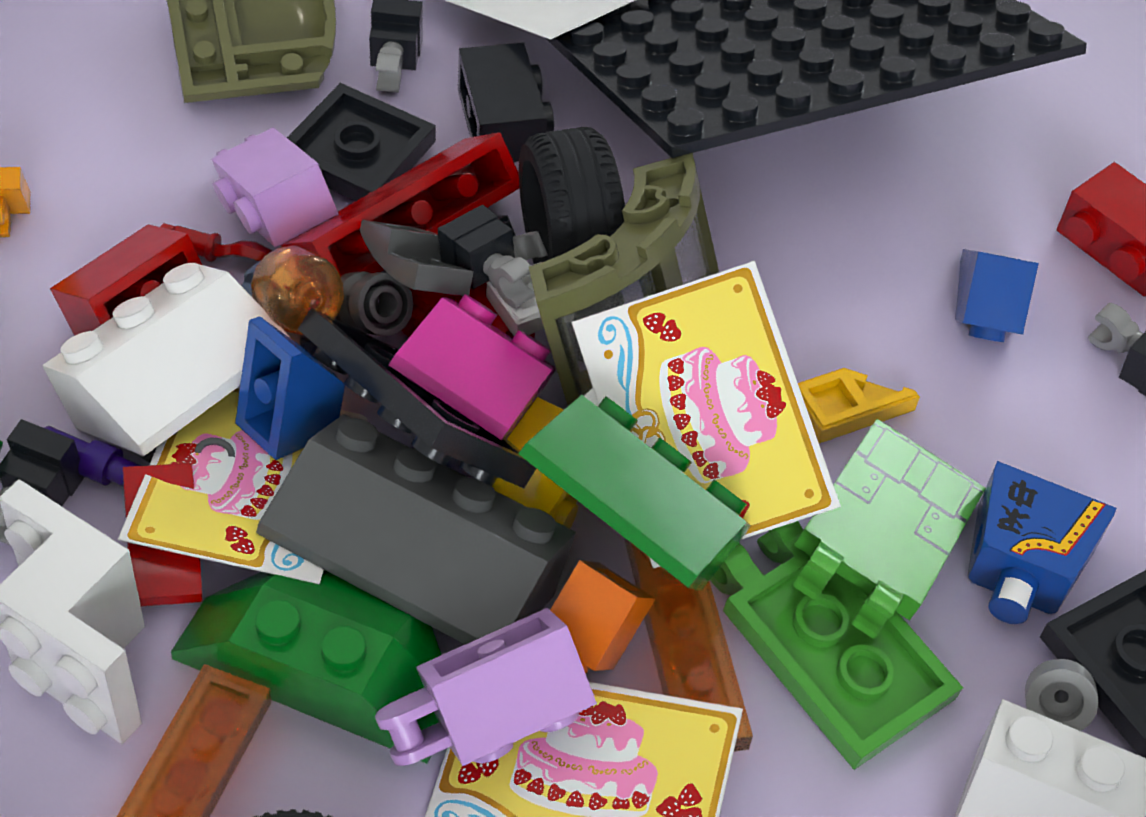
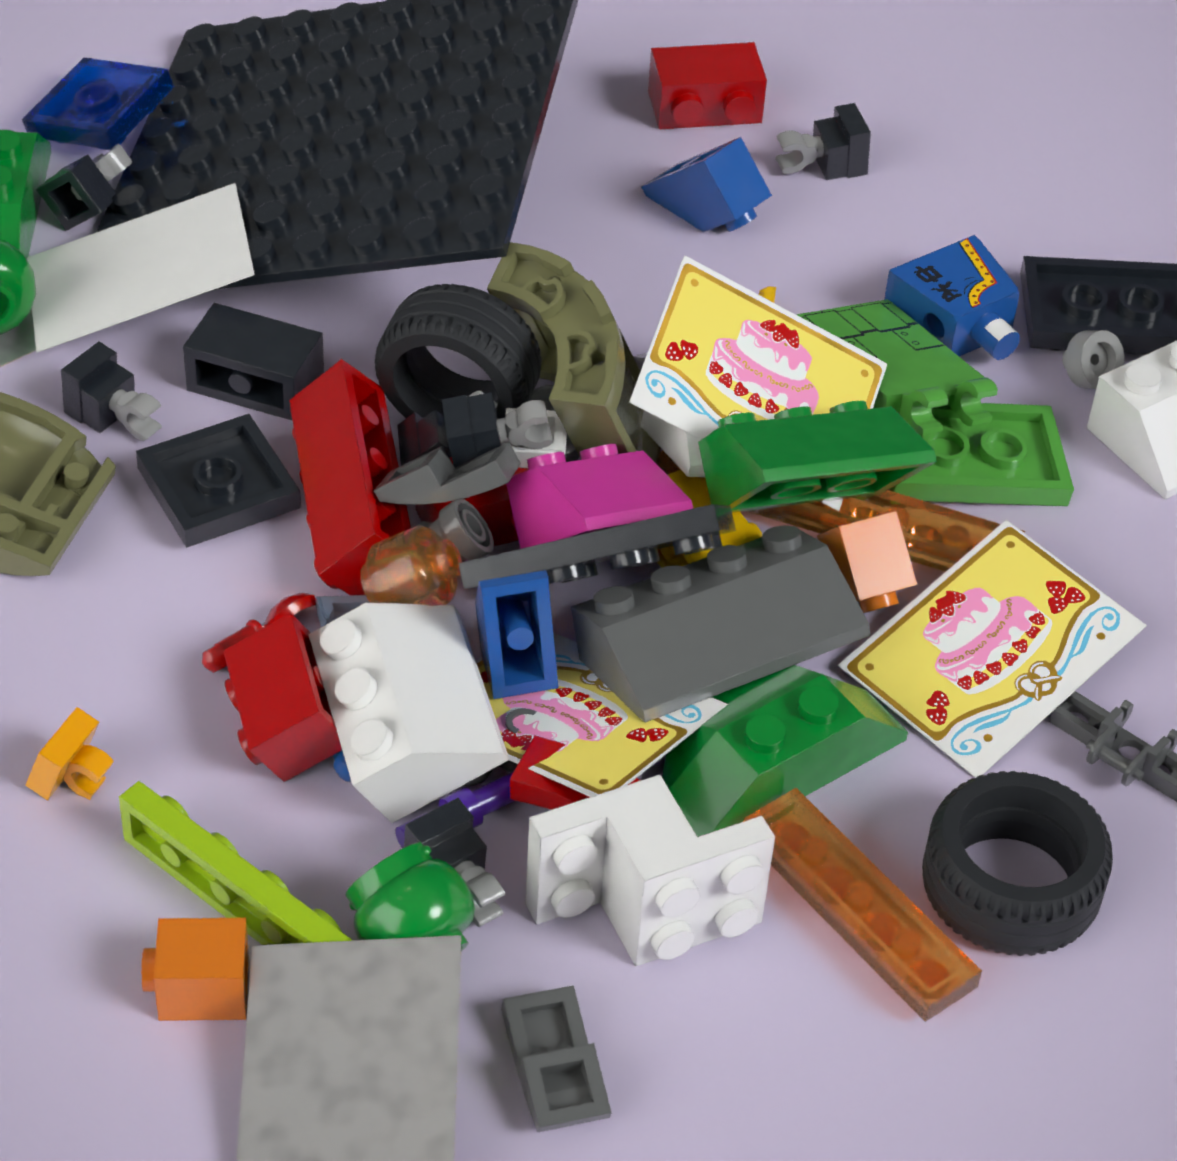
camera: 55 degrees left, 5 degrees down
(273, 187) = (240, 546): lavender brick -> none
(492, 694) = (907, 642): lavender brick -> none

